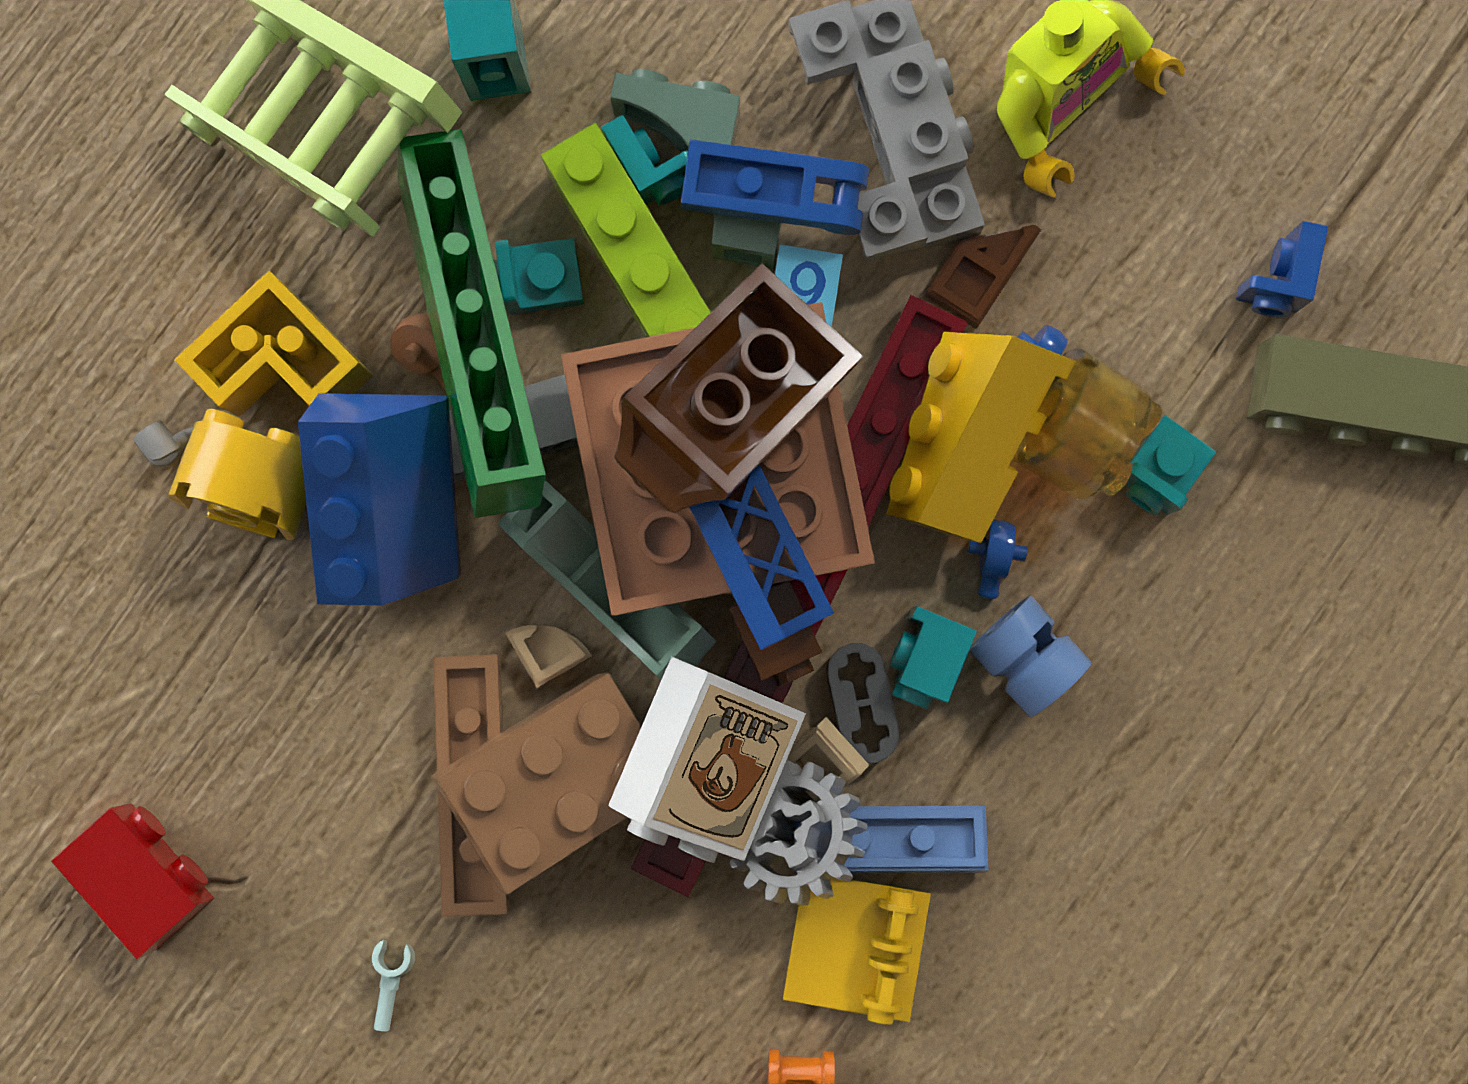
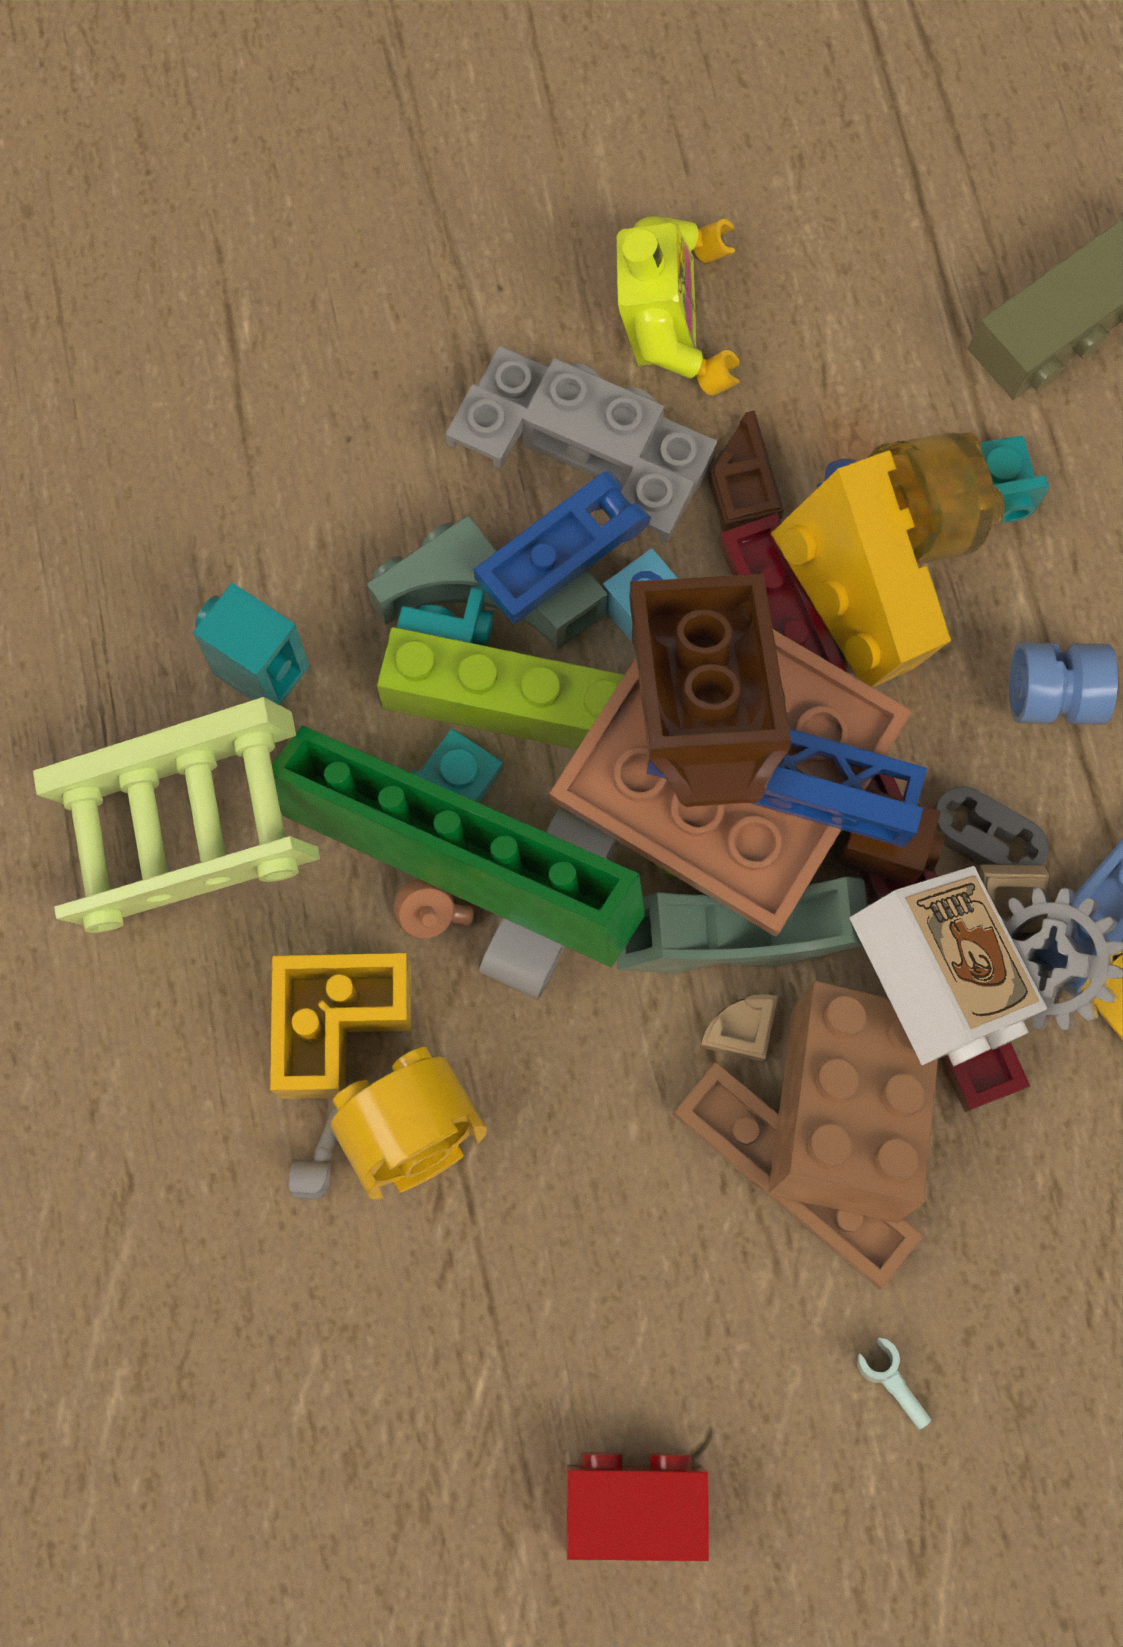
camera: 50 degrees left, 10 degrees down
(379, 496) = (521, 1031): blue slope -> none
(930, 658) = (1000, 752): teal brick -> none
(996, 556) = (966, 645): blue piece -> none
(1297, 265) = (944, 274): blue bracket -> none

